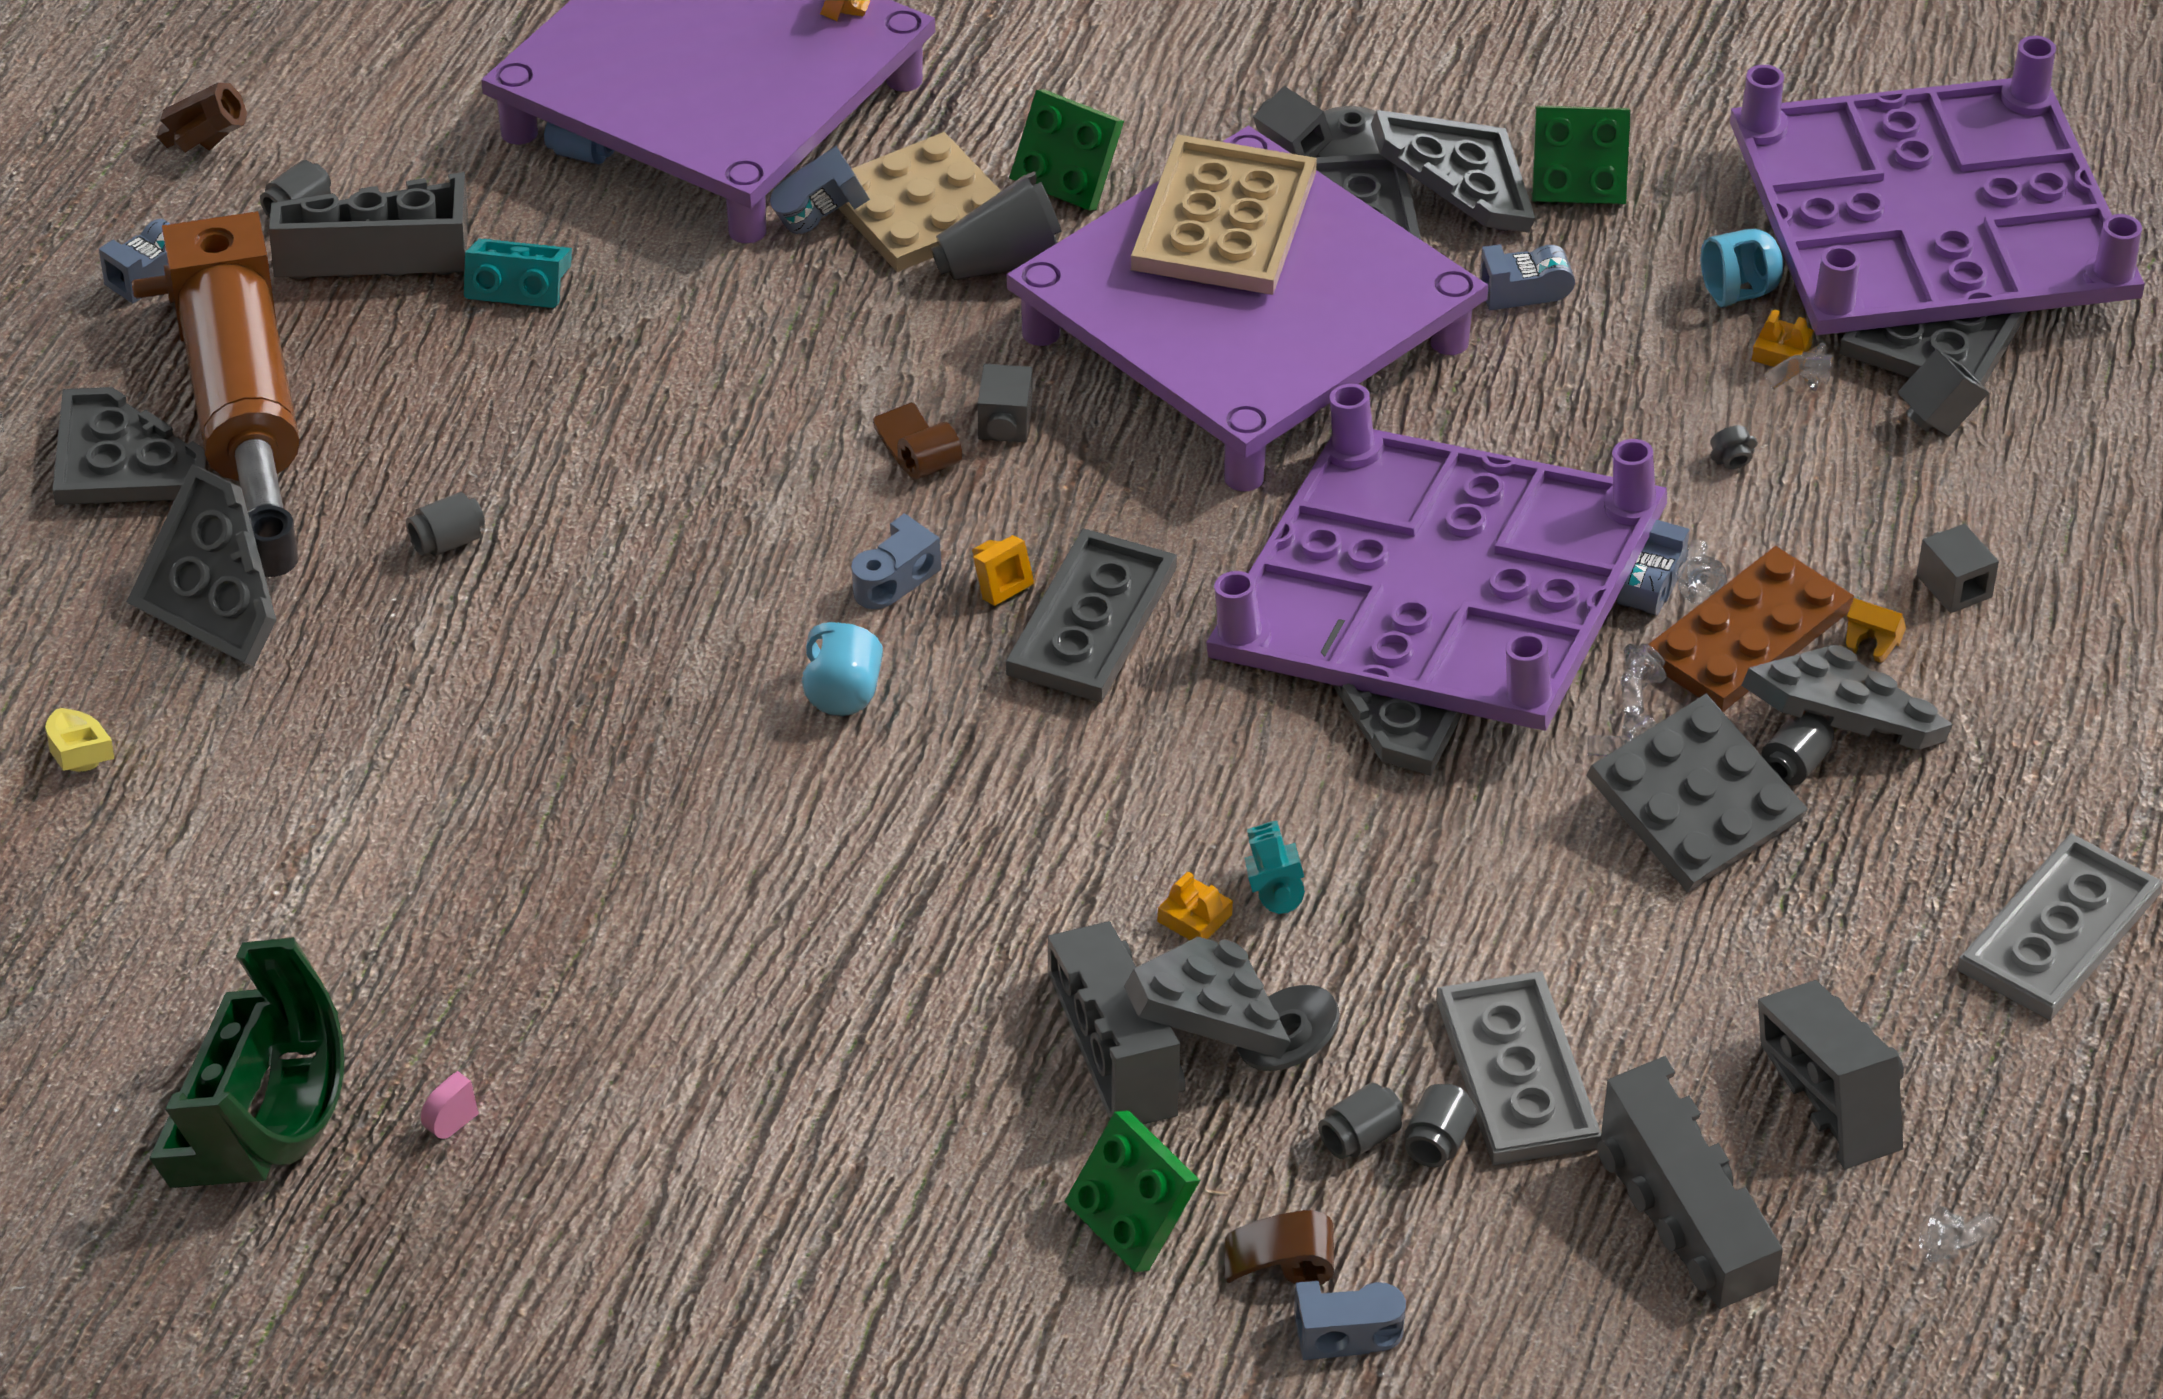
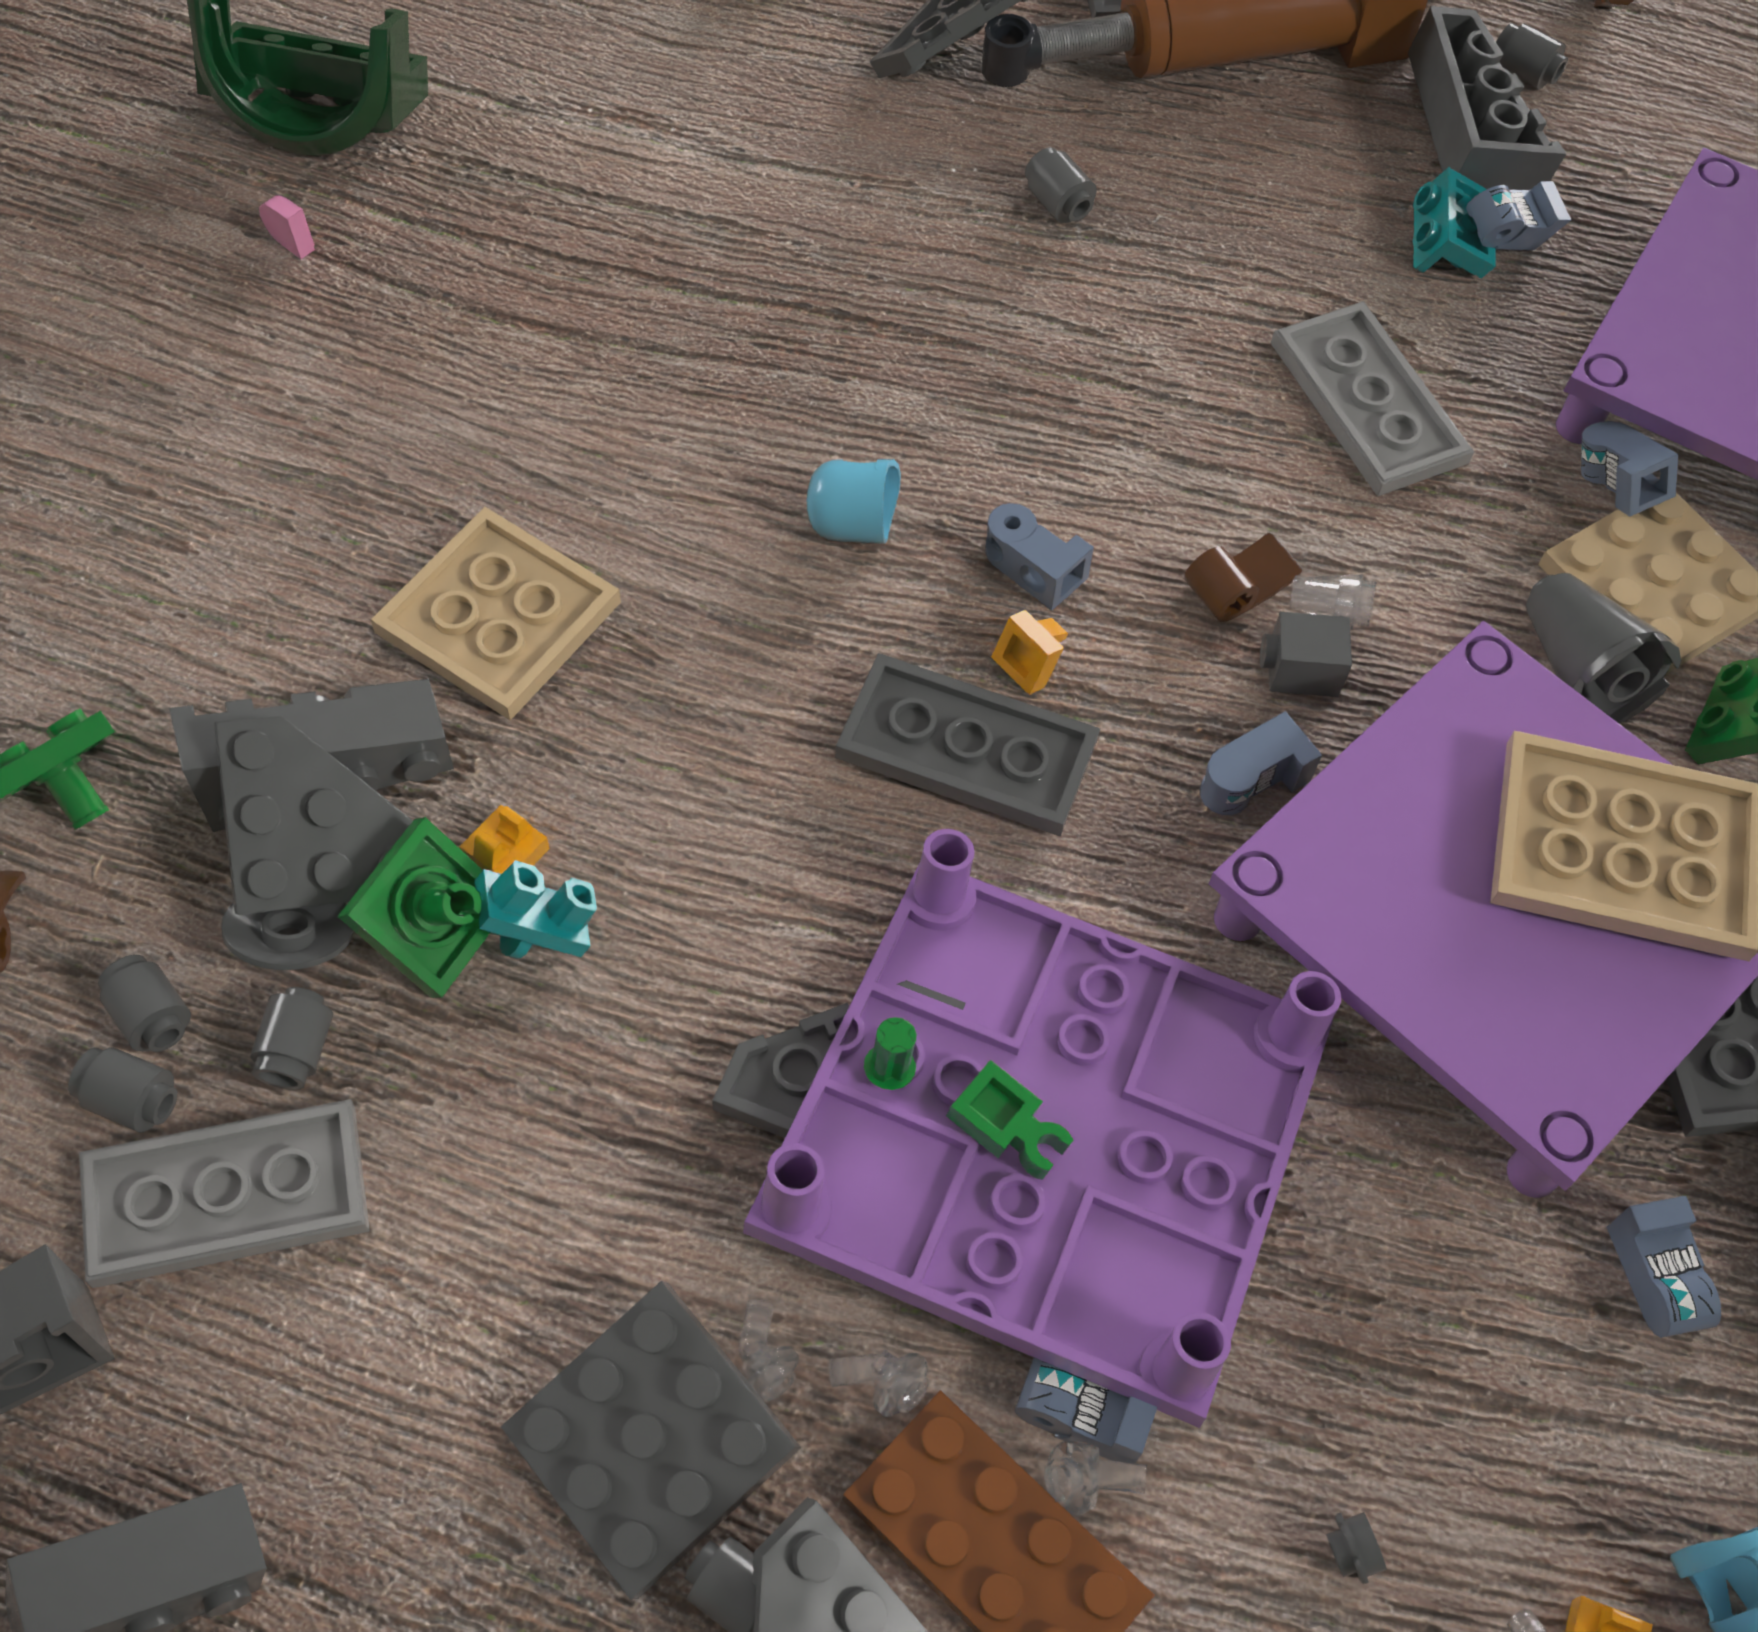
camera: 85 degrees right, 15 degrees up
(523, 219) = (1518, 217): none -> sand blue leg
(712, 348) = (1371, 398): none -> light grey tile
(945, 381) = (1335, 596): none -> clear cone
(951, 920) = (496, 612): none -> tan plate
(1111, 445) = (1256, 762): none -> sand blue leg
(1274, 925) = (421, 908): none -> green plate
(1387, 1023) = (291, 1038): none -> dark grey brick
(1404, 633) = (891, 1059): none -> green piece
(1448, 584) = (1001, 1114): none -> green plate

